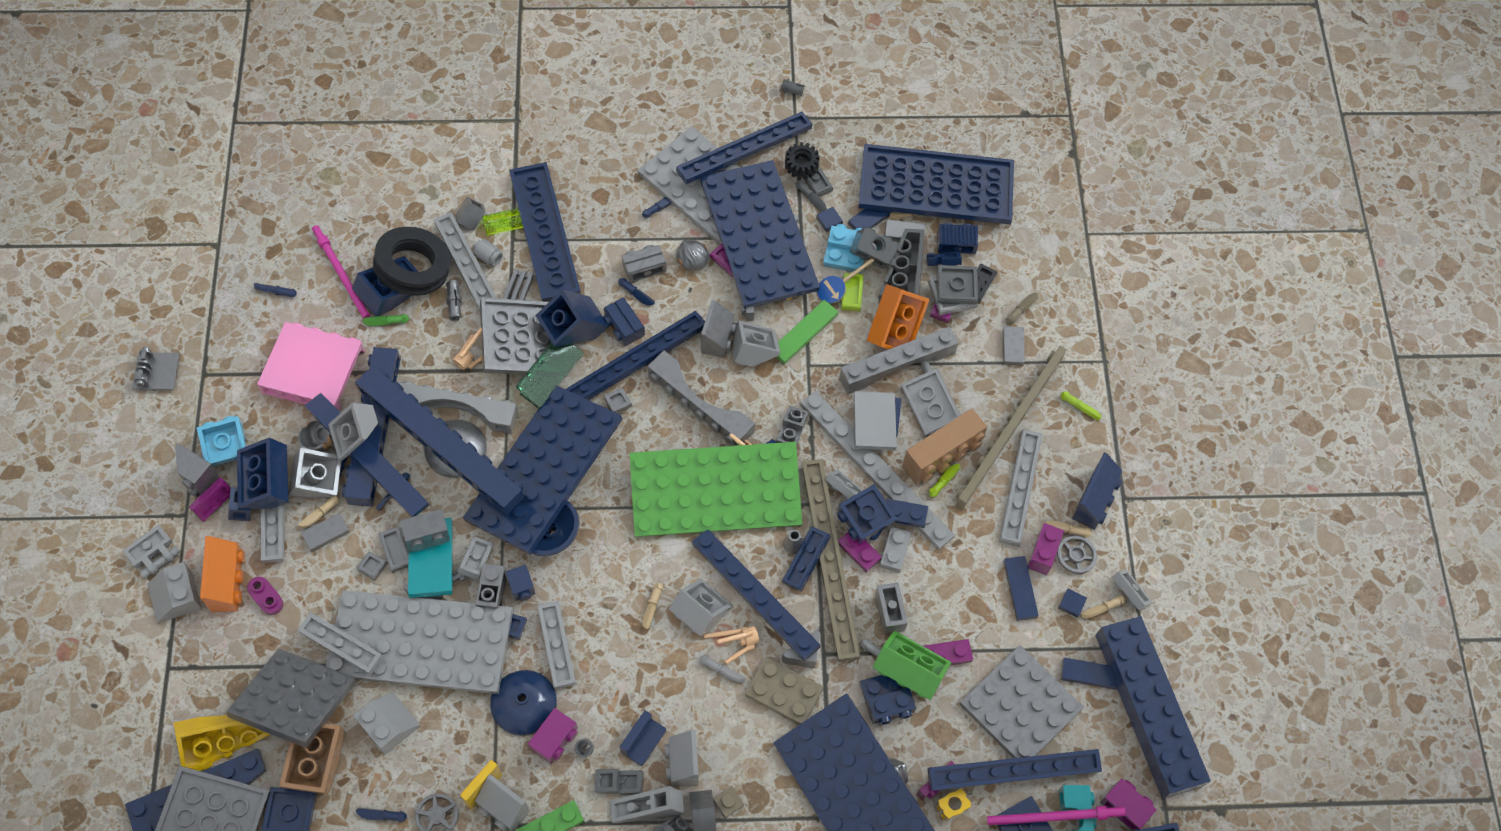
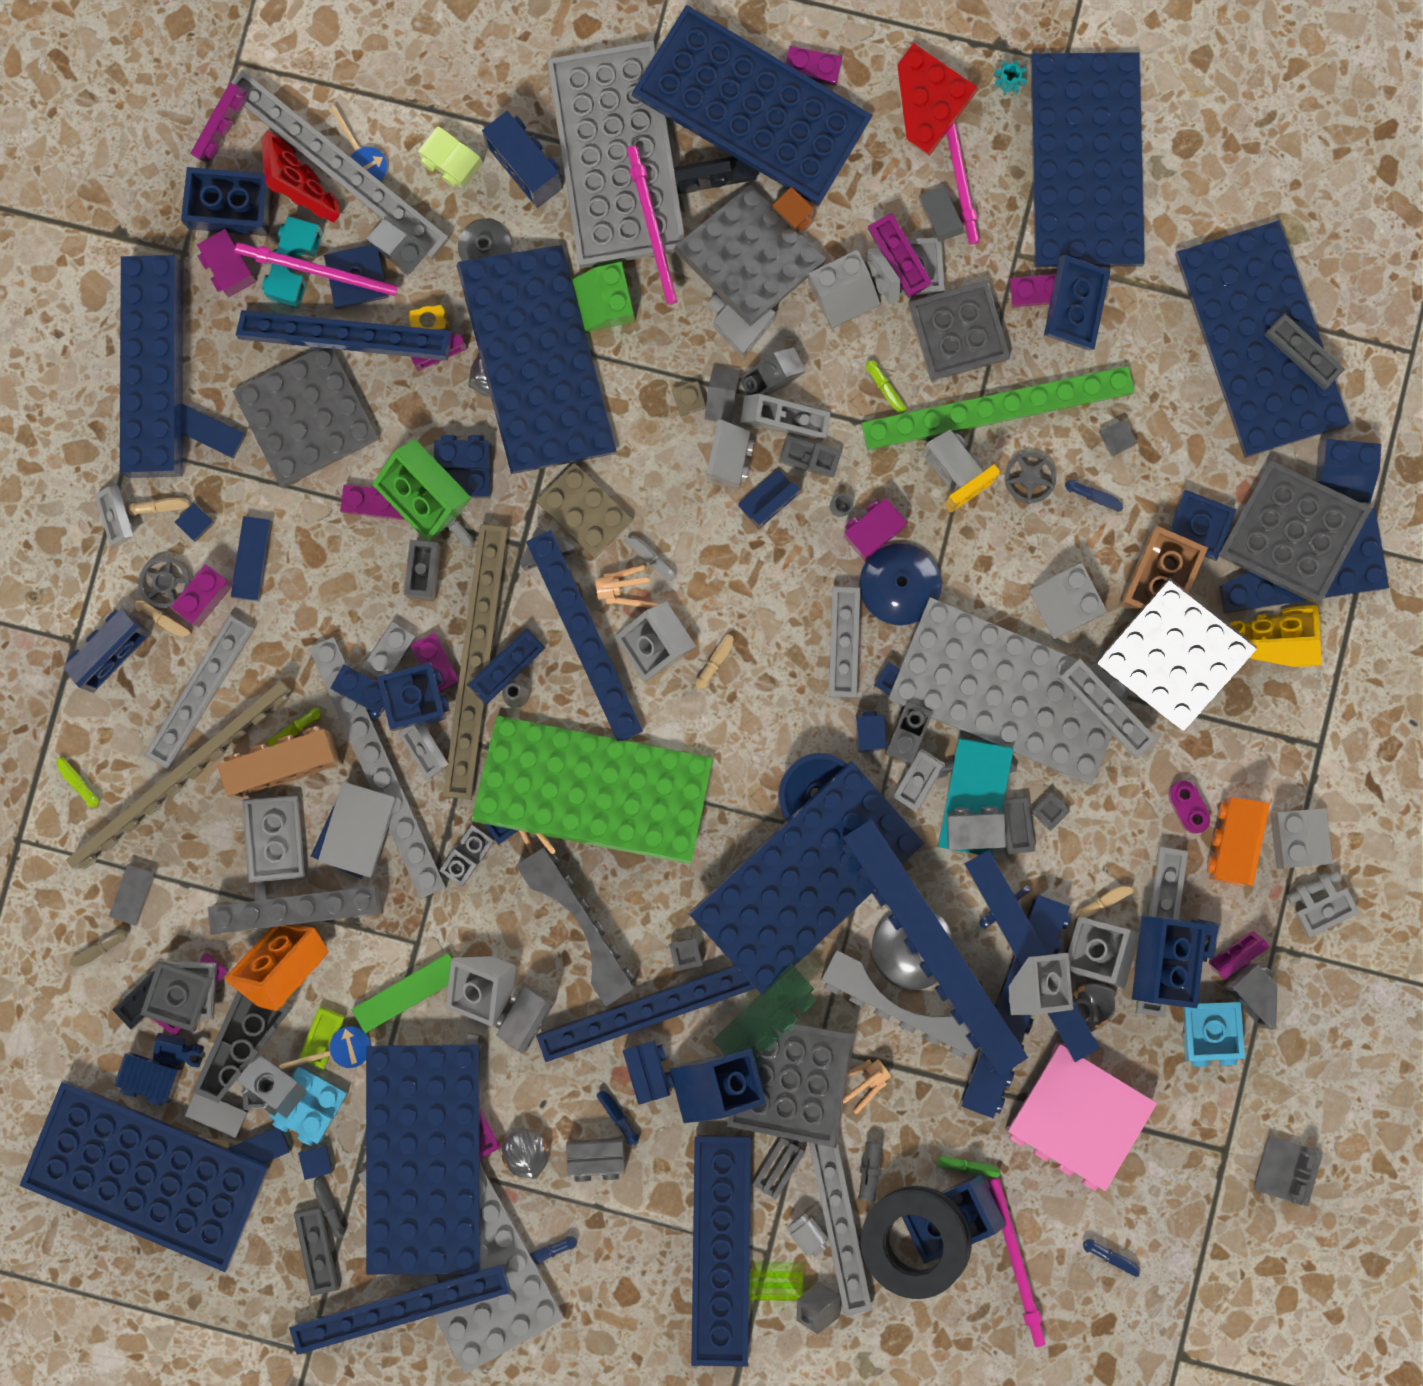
camera: 155 degrees left, 20 degrees up
(325, 532) = (1101, 872): flat silver tile -> none
(802, 169) = (341, 1258): black tyre -> none

